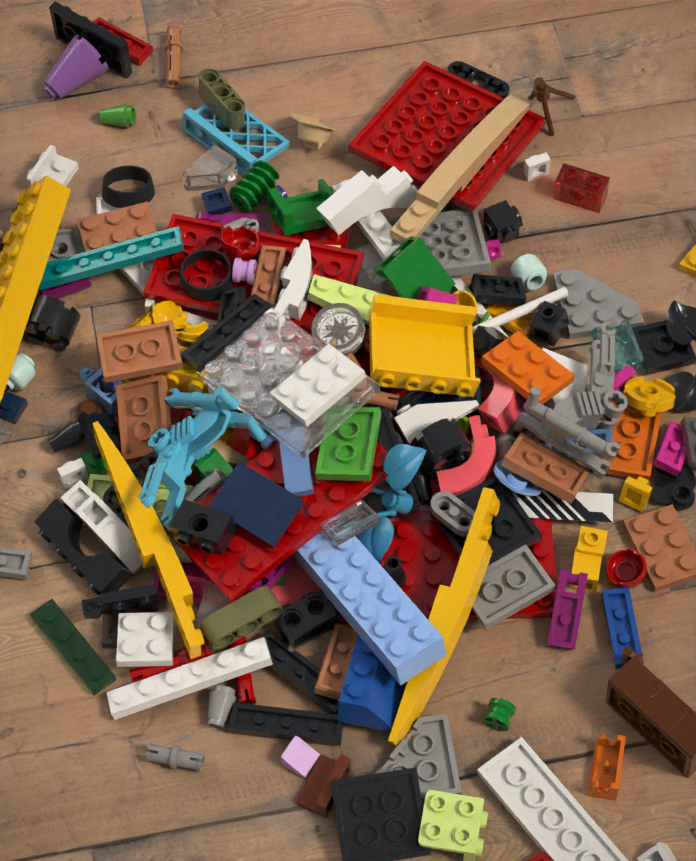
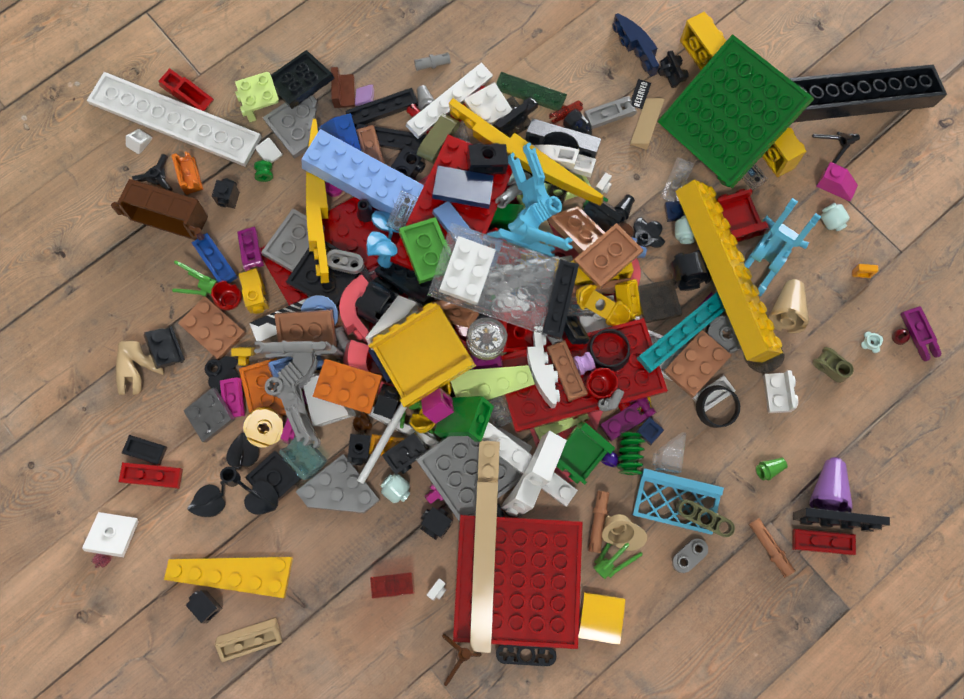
camera: 150 degrees right, 15 degrees up
(46, 566) = (577, 122): none -> black rock
(48, 591) = (564, 111): none -> clear red axle
(61, 396) = (648, 233): none -> black plate
(106, 314) = (659, 301): none -> clear smoke plate
(258, 87) = (690, 555): none -> light grey plate
(323, 156) = (600, 512): none -> nougat pin
(350, 111) = (605, 567): none -> bright green plant
(381, 75) = (602, 618): none -> yellow slope
(477, 744) = (268, 151): none -> white slope
(566, 705) = (225, 193): none -> black brick
(648, 598) = (205, 282): none -> bright green plant
(654, 788) = (156, 174): none -> black piece

